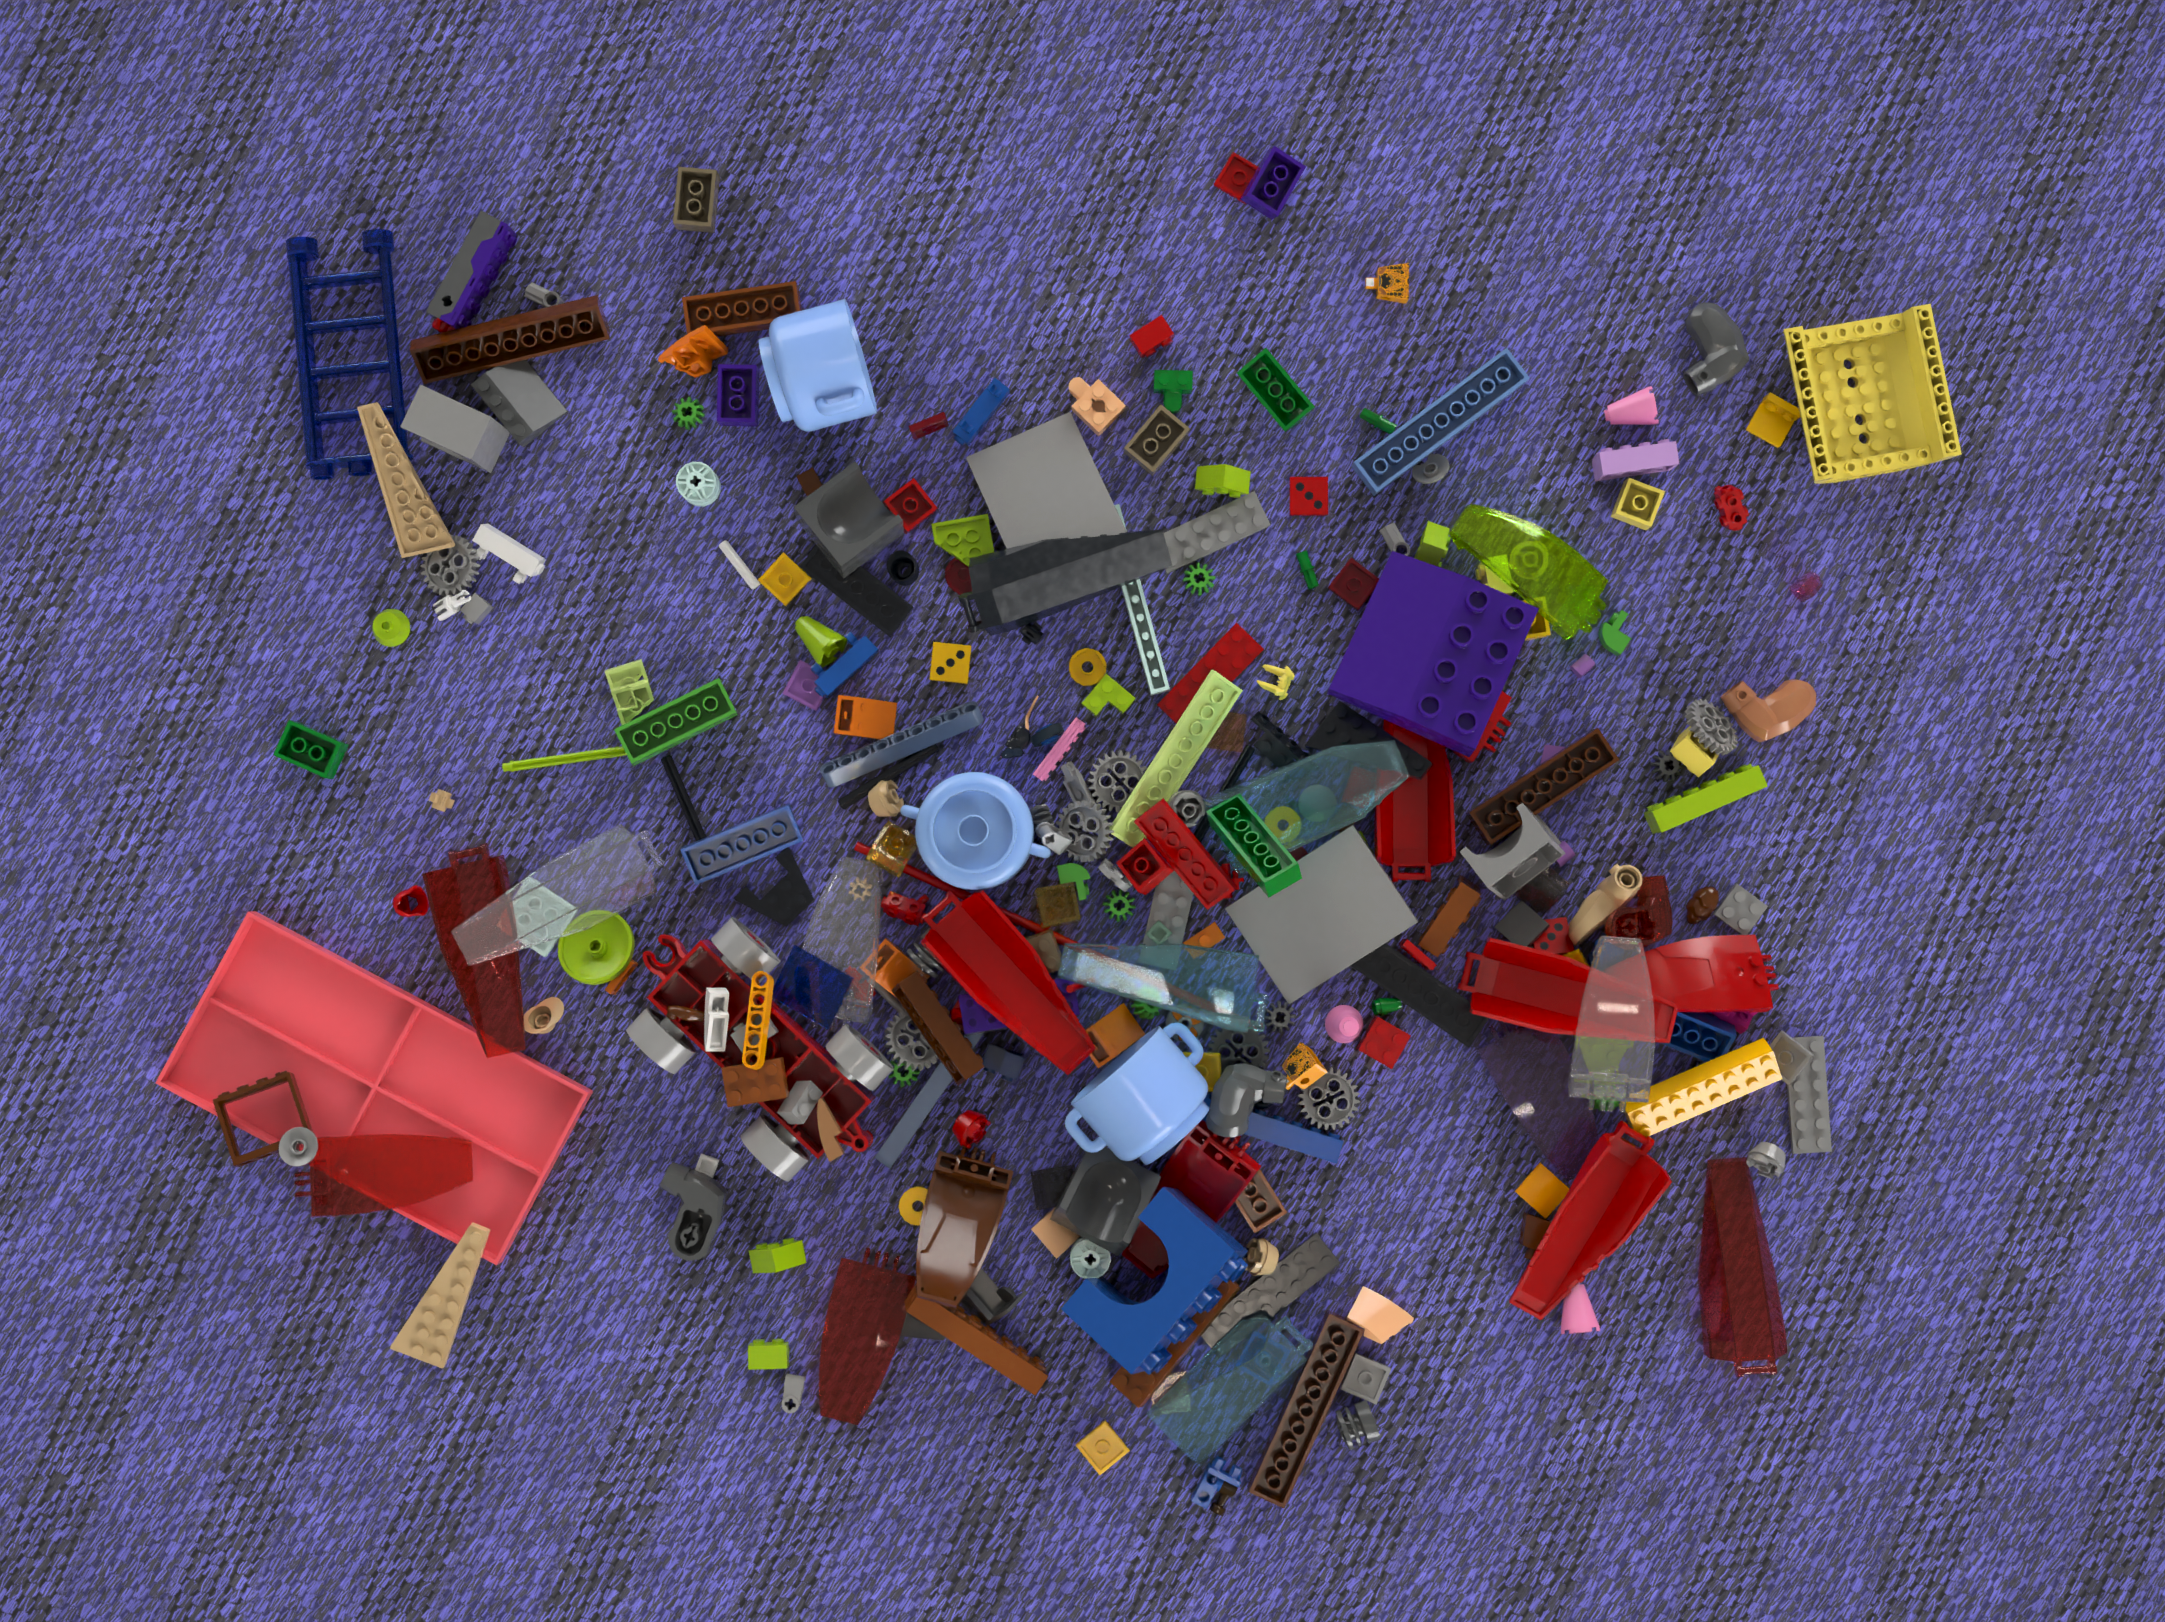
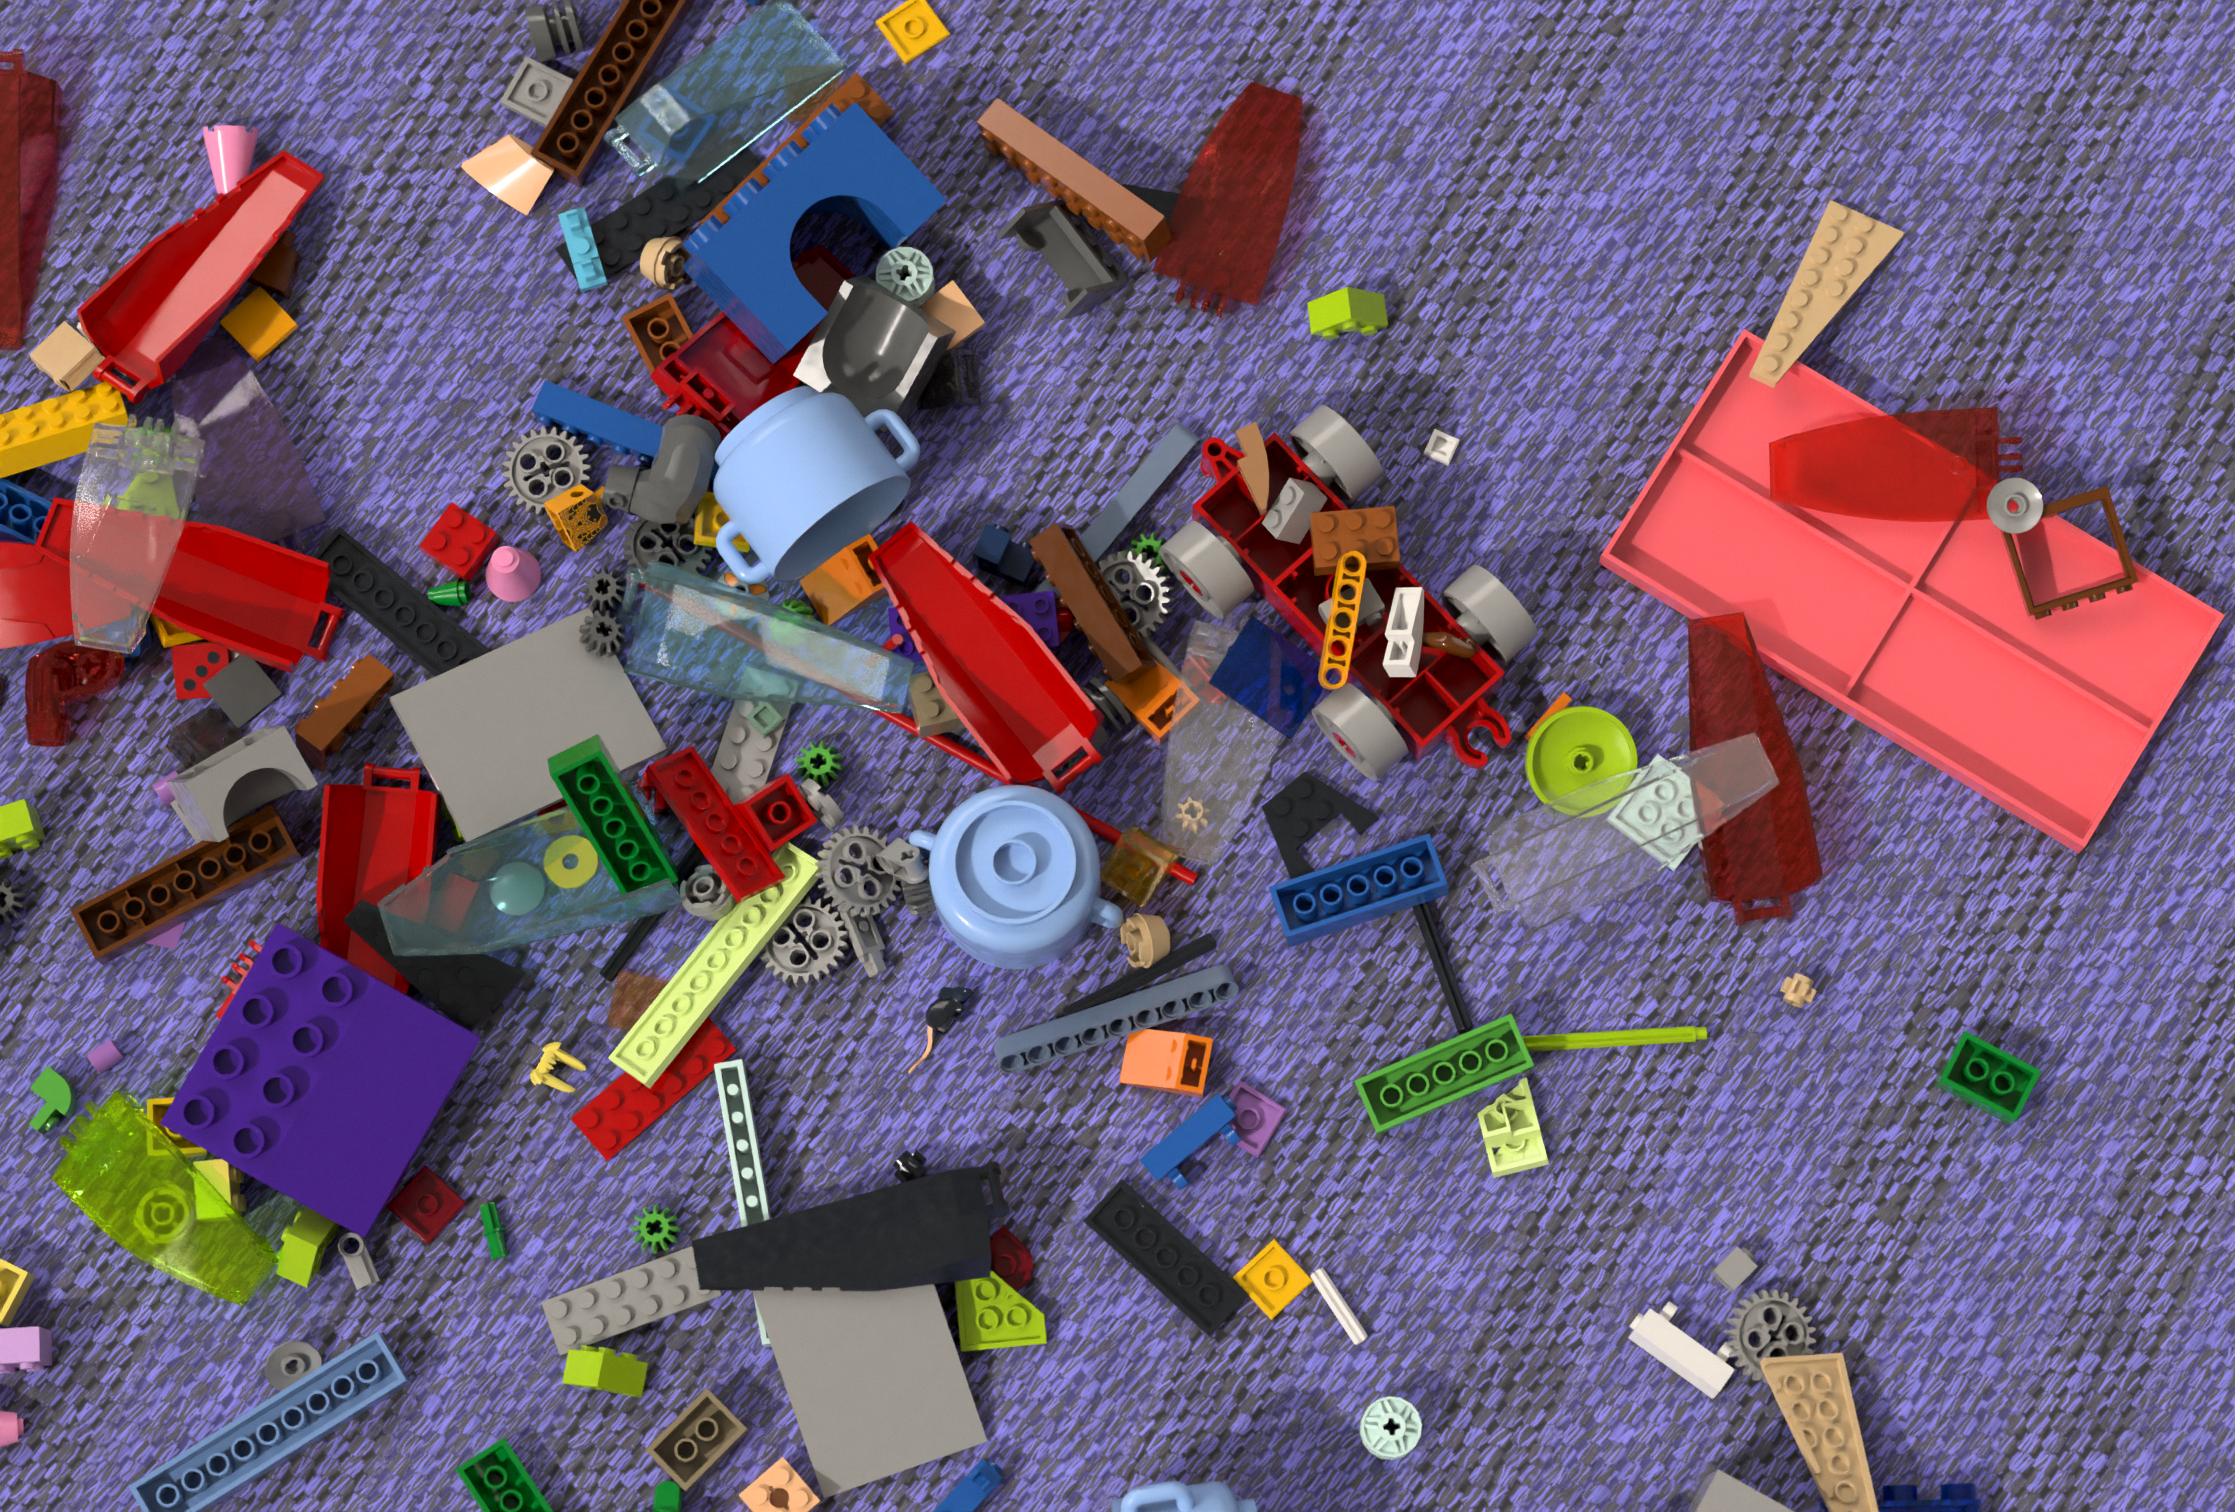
camera: 175 degrees left, 10 degrees down
(391, 627) = (1864, 1252): lime cone -> none
(401, 902) = (1863, 844): red hair -> none
(451, 604) = (1770, 1277): white arm -> none
(543, 1016) = (1660, 670): tan piece -> none
(699, 1213) = (1453, 379): dark grey piece -> none
(768, 1354) = (1369, 184): lime brick -> none
(793, 1390) = (1338, 134): light grey piece -> none
(809, 481) = (1221, 1417): reddish brown brick -> none
(820, 640) = (1226, 1181): lime cone -> none
(848, 520) = (1167, 1350): dark grey piece -> none
(897, 562) = (1103, 1290): black hat -> none
(904, 908) = (1123, 779): red brick -> none
(906, 1204) = (1144, 354): yellow tile -> none
(911, 505) = (1075, 1370): red brick -> none
(928, 425) = (1037, 1488): dark red tile -> none
(950, 662) = (1035, 1135): yellow tile -> none
(958, 1224) = (1084, 331): reddish brown windscreen -> none
(970, 1128) = (1060, 468): red cone -> none
(1047, 734) = (901, 1015): black wheel -> none
(1057, 905) = (908, 768): clear yellow brick -> none
(1059, 749) = (886, 995): bright pink piece -> none
(1075, 873) = (879, 814): bright green brick -> none
(1087, 655) = (833, 1130): yellow tile -> none
(1108, 691) = (808, 1071): lime brick -> none
(1207, 937) = (699, 709): orange tile -> none
(1274, 990) = (598, 641): none -> dark grey gear
(1275, 743) = (566, 976): black bracket -> none
(1308, 496) = (479, 1342): red tile -> none
(1320, 1262) = (582, 249): none -> medium azure plate
(1378, 421) = (363, 1446): green axle -> none
(1418, 955) = (396, 658): red tile -> none
(1609, 896) = (121, 710): tan piece -> none
(1674, 1153) = (66, 357): none -> tan piece

